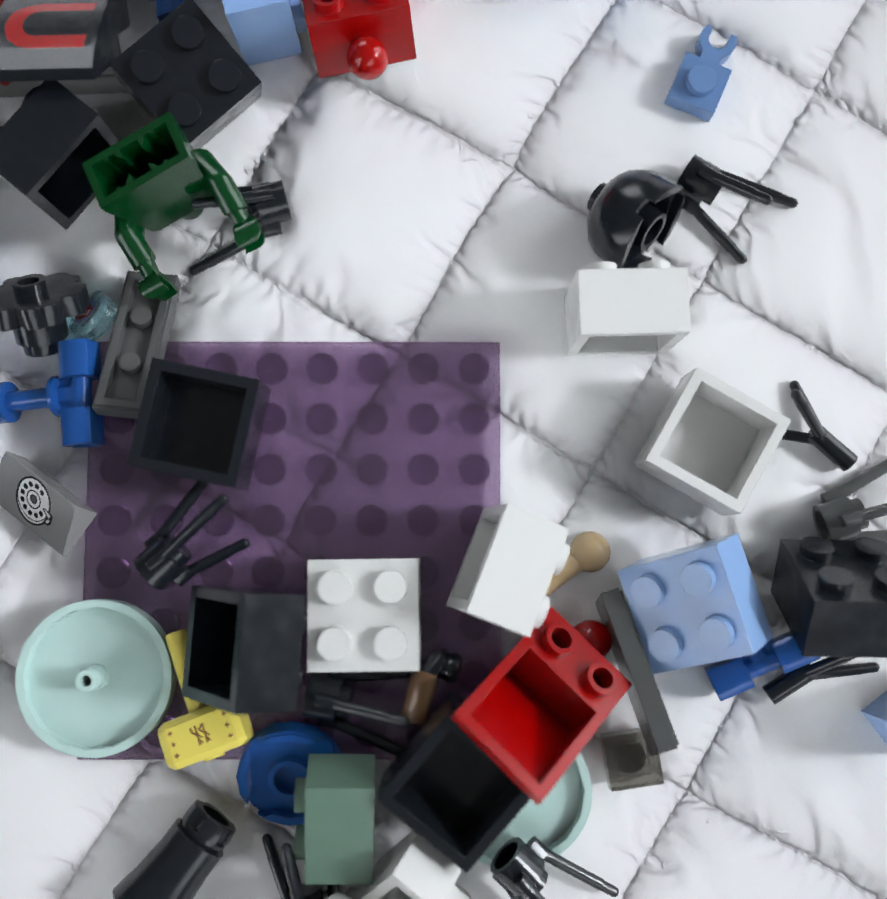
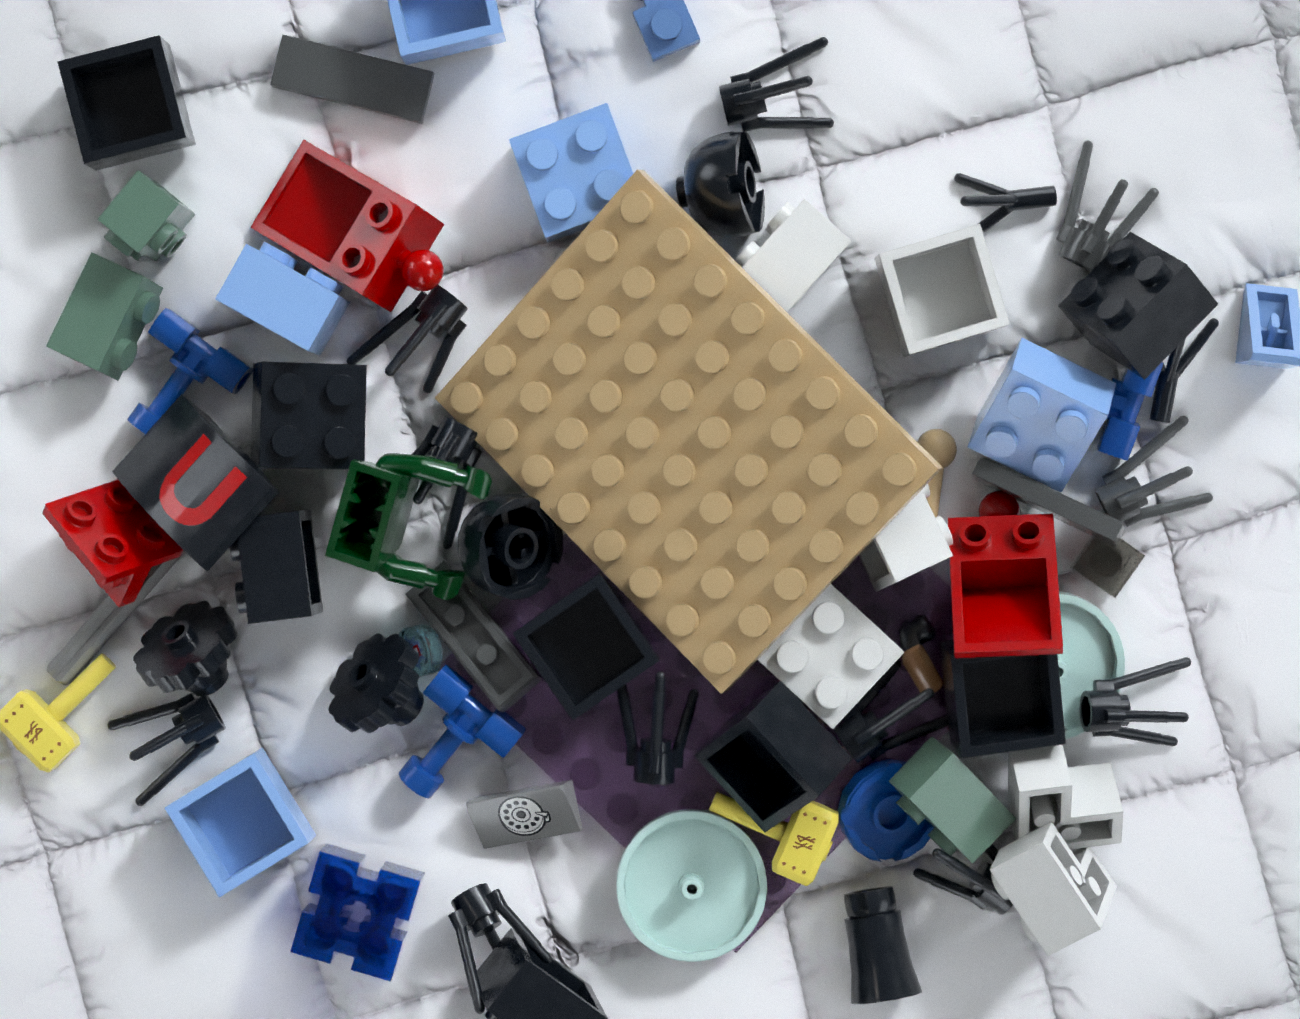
camera: 50 degrees left, 5 degrees up
(226, 305) = (509, 545): none -> black cylinder
(348, 110) = (438, 314): none -> black plant
(433, 357) = (686, 431): none -> tan plate
(539, 110) = (572, 169): none -> light blue piece
(696, 728) = (1124, 497): none -> dark grey plant

